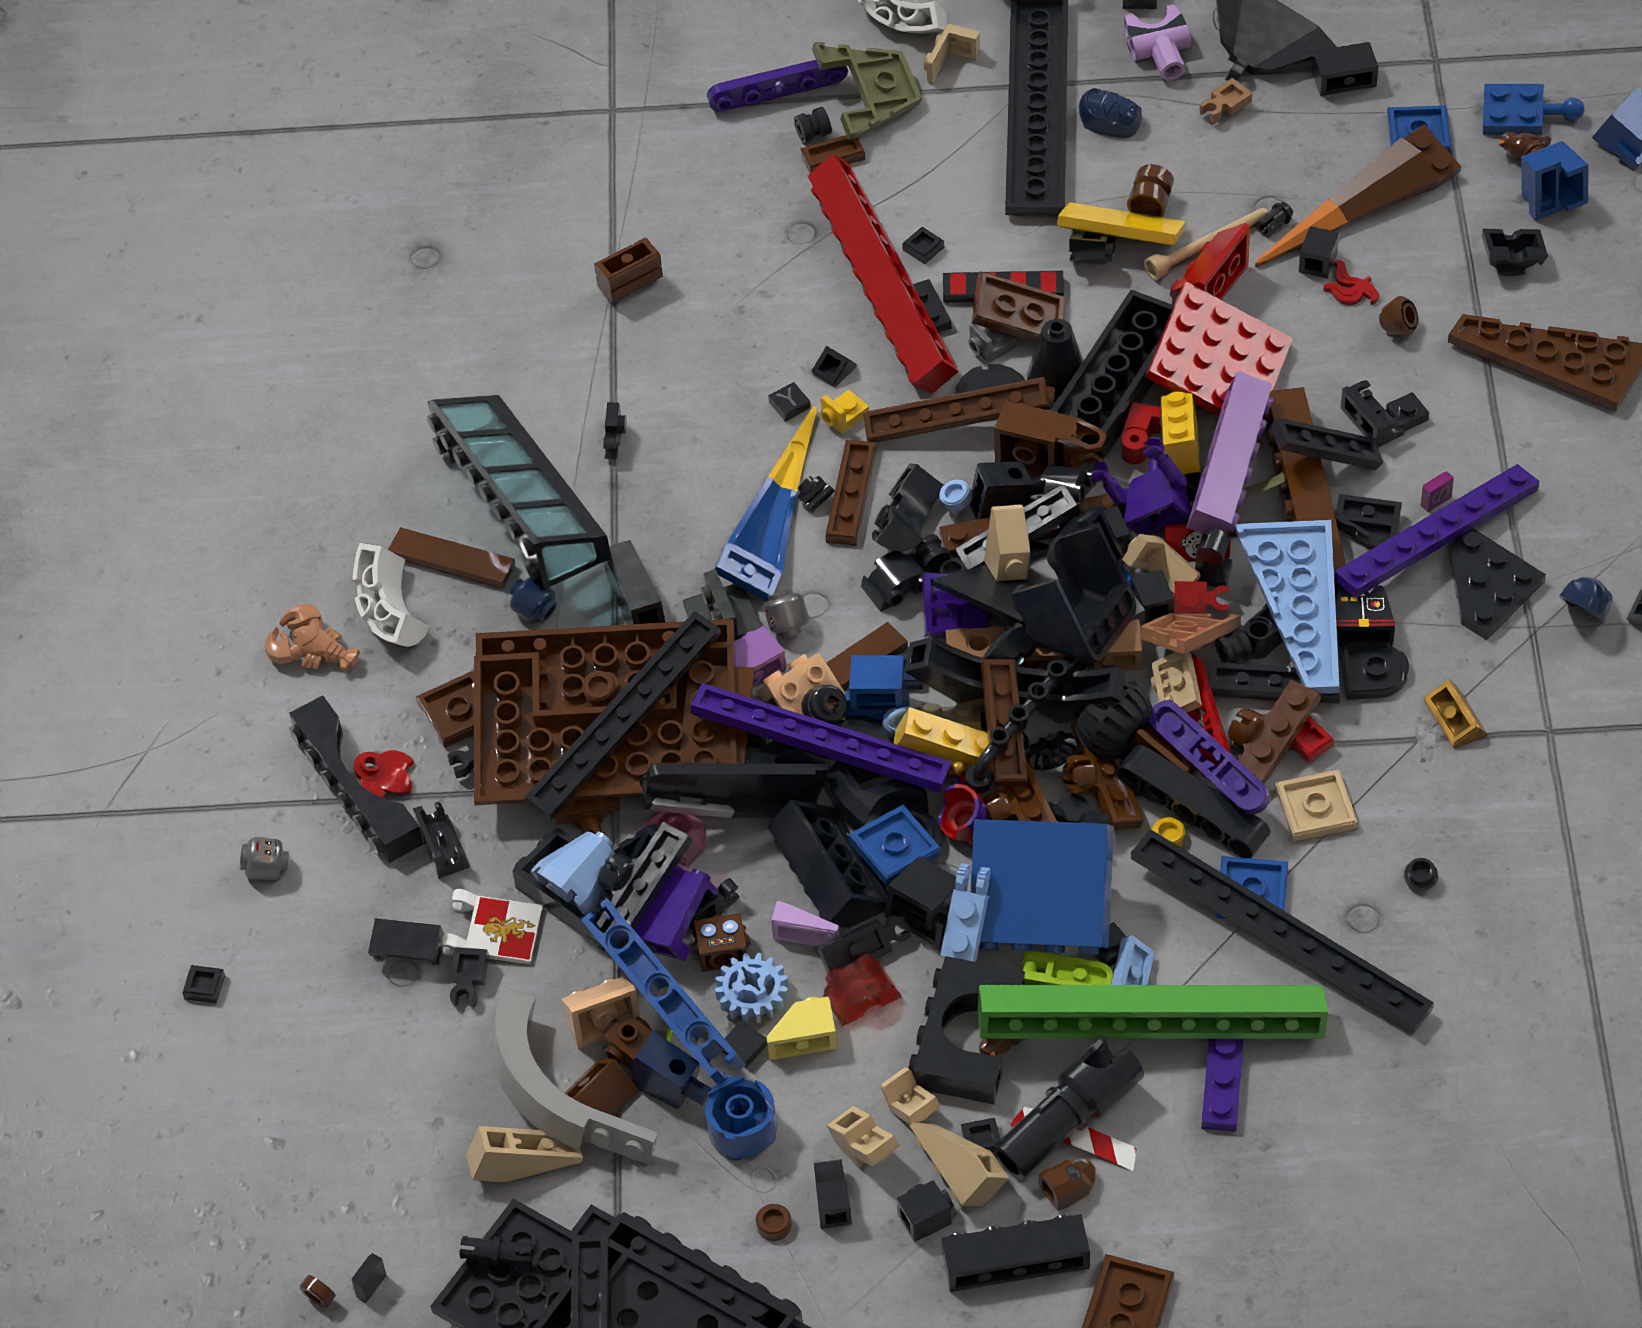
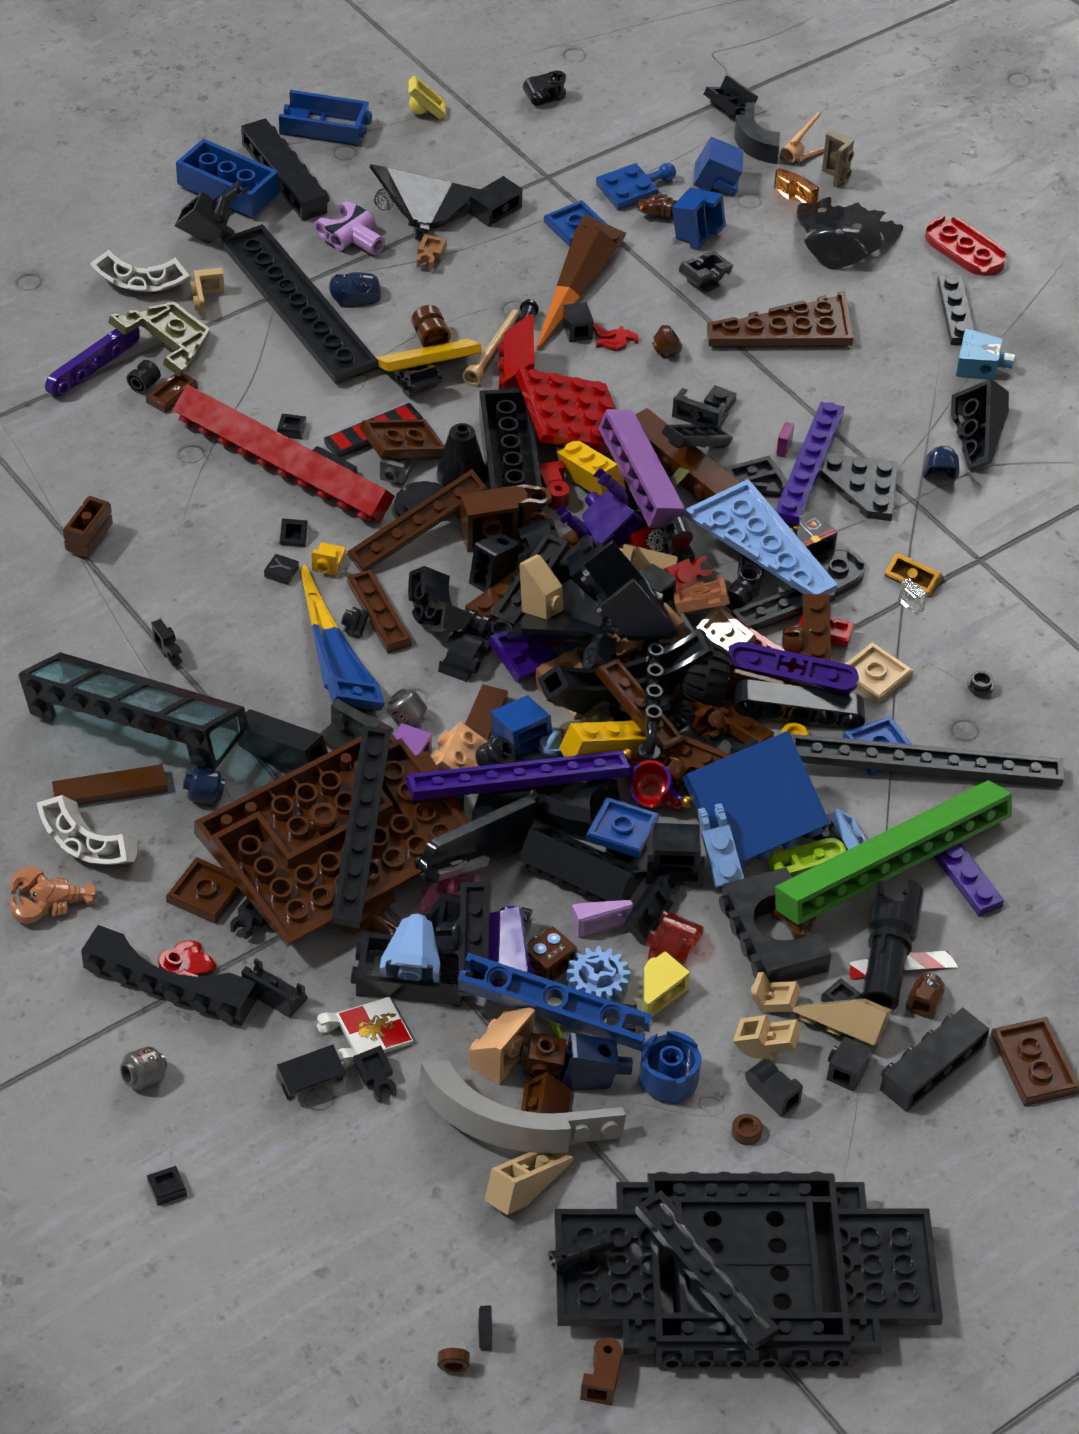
camera: 40 degrees left, 5 degrees down
(955, 496) = (462, 578): light blue tile -> none

